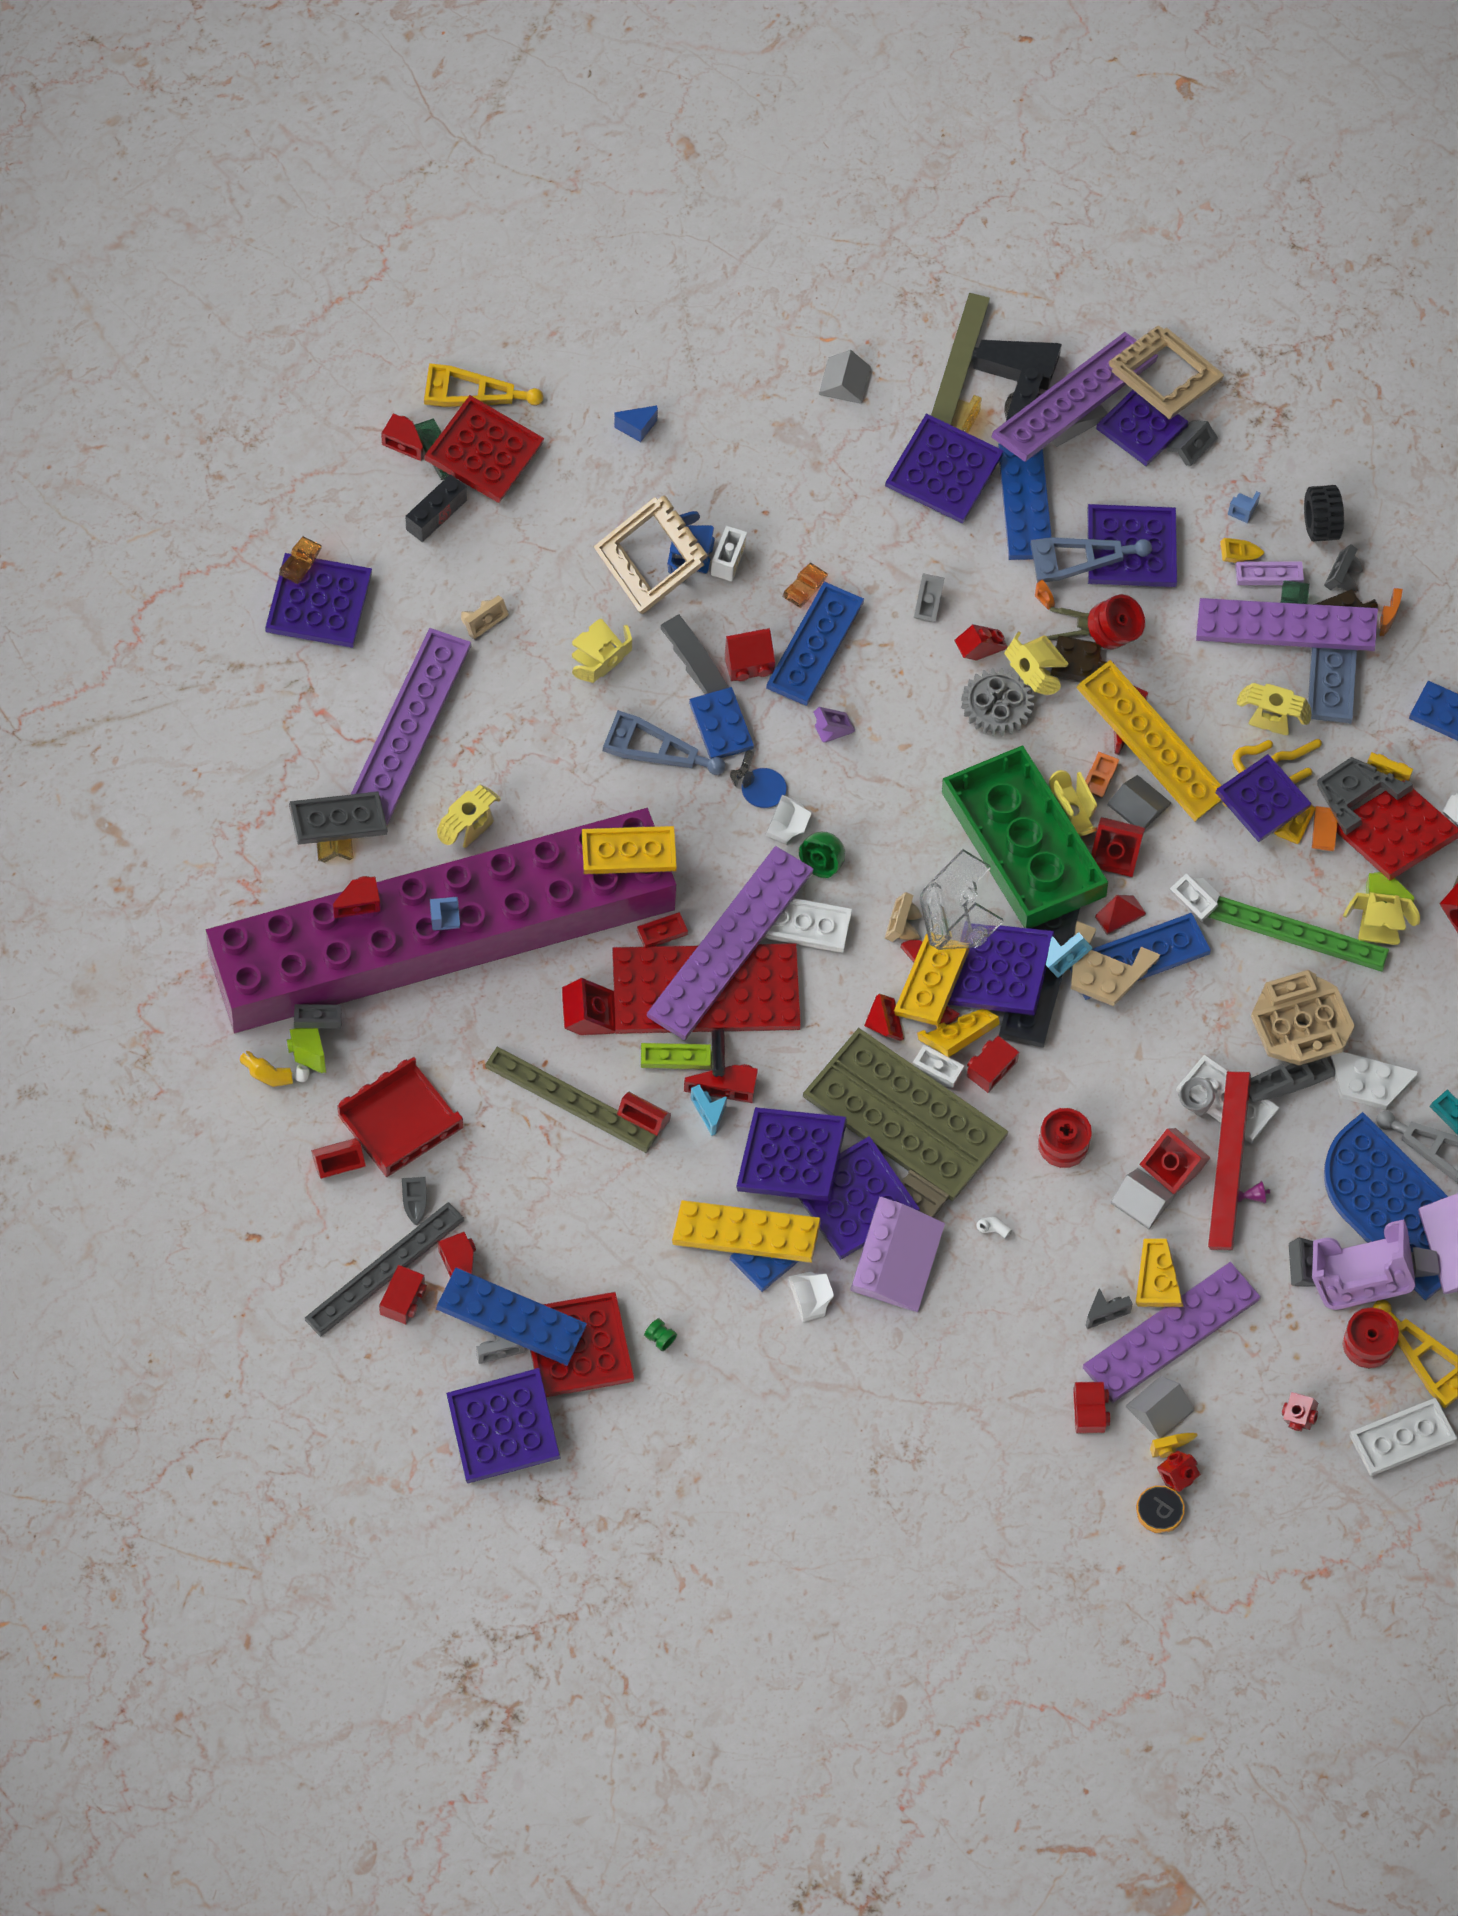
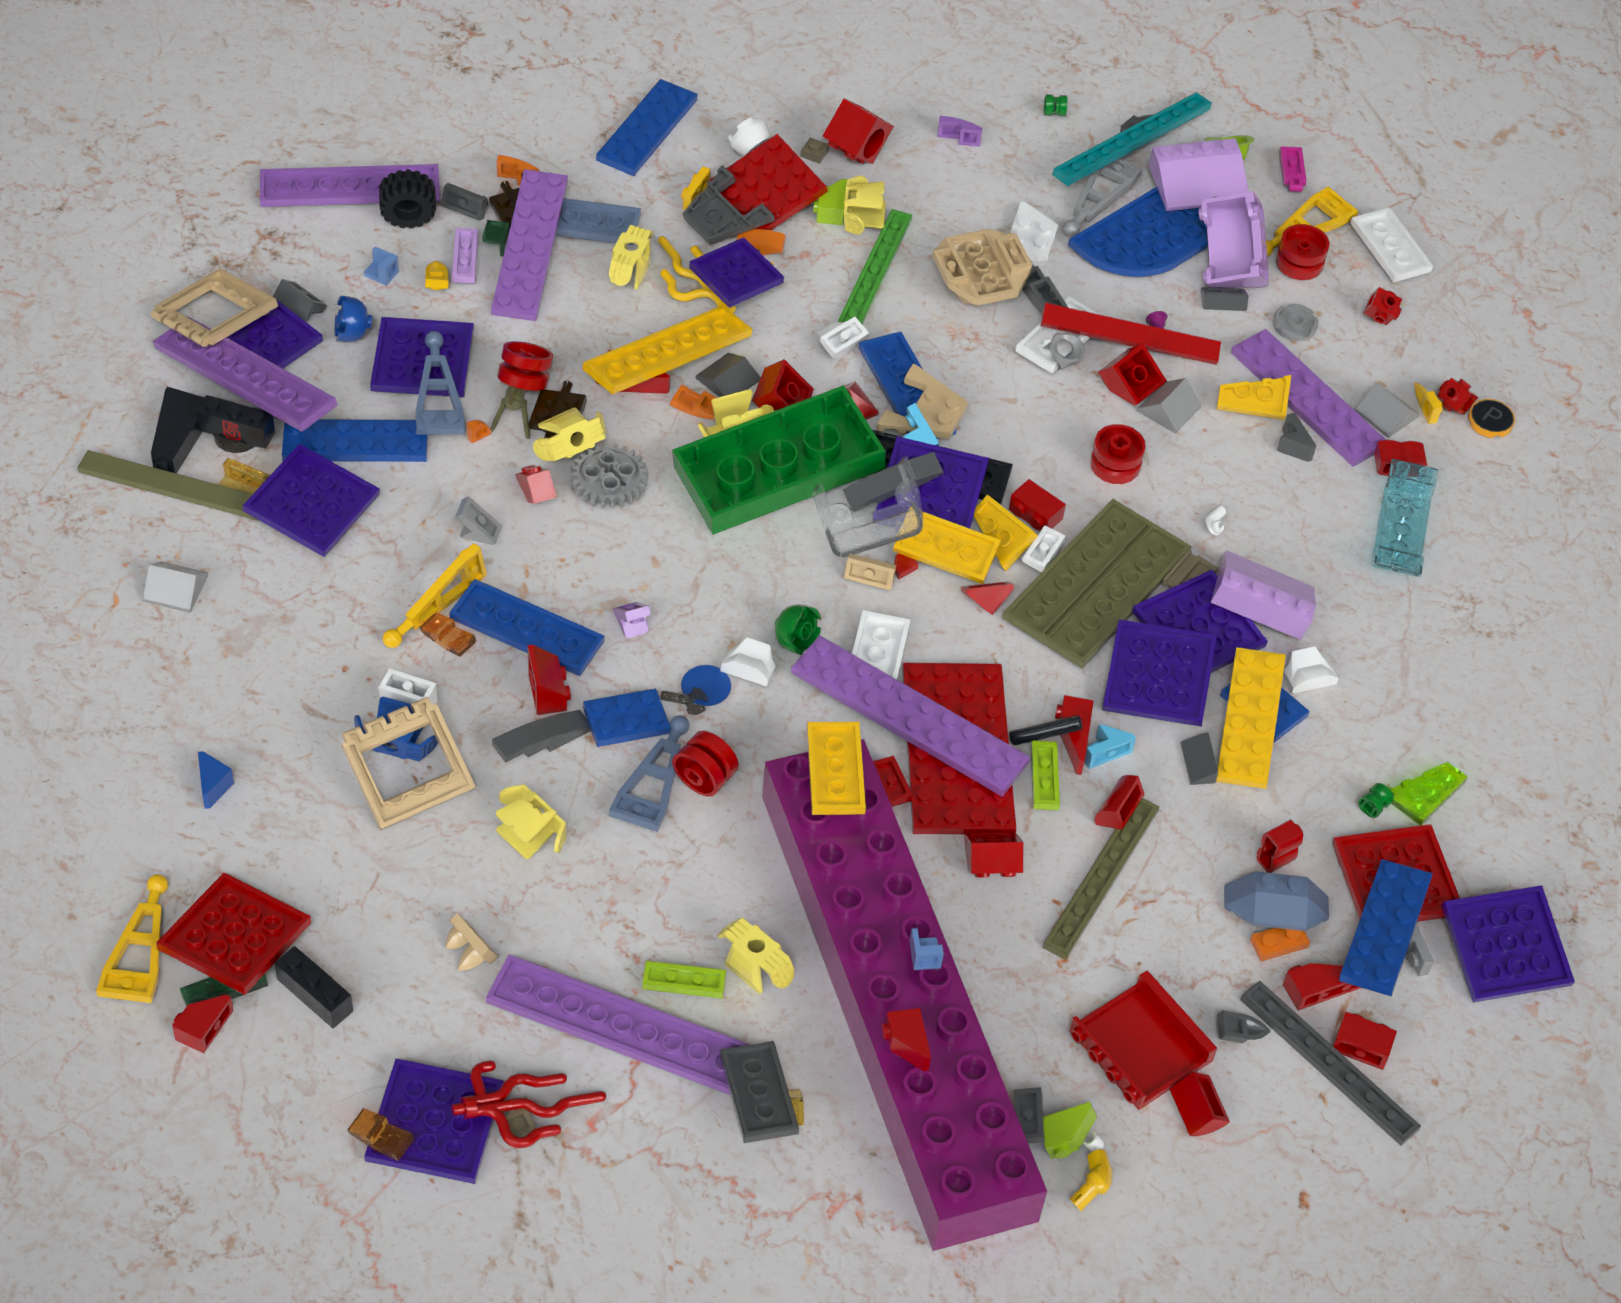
camera: 90 degrees left, 10 degrees down
(314, 657) = (520, 1122): none -> dark tan plate
(325, 630) = (494, 1104): none -> red plant
(452, 770) = (684, 979): none -> lime plate
(507, 1240) = (1278, 942): none -> orange plate
(540, 1240) = (1277, 901): none -> sand blue wedge
(596, 1238) = (1280, 846): none -> red brick
(663, 777) = (705, 763): none -> red wheel
(672, 1381) = (1428, 792): none -> clear neon green wing
(702, 1189) = (1199, 759): none -> dark grey slope
(870, 585) = (469, 565): none -> yellow plate
(998, 1399) = (1404, 518): none -> clear light blue slope
(1002, 938) = (884, 483): none -> dark grey slope
(1164, 481) = (351, 319): none -> blue cylinder
(1277, 1330) = (1295, 322): none -> light grey tile
(1352, 470) = (331, 184): none -> medium lavender plate

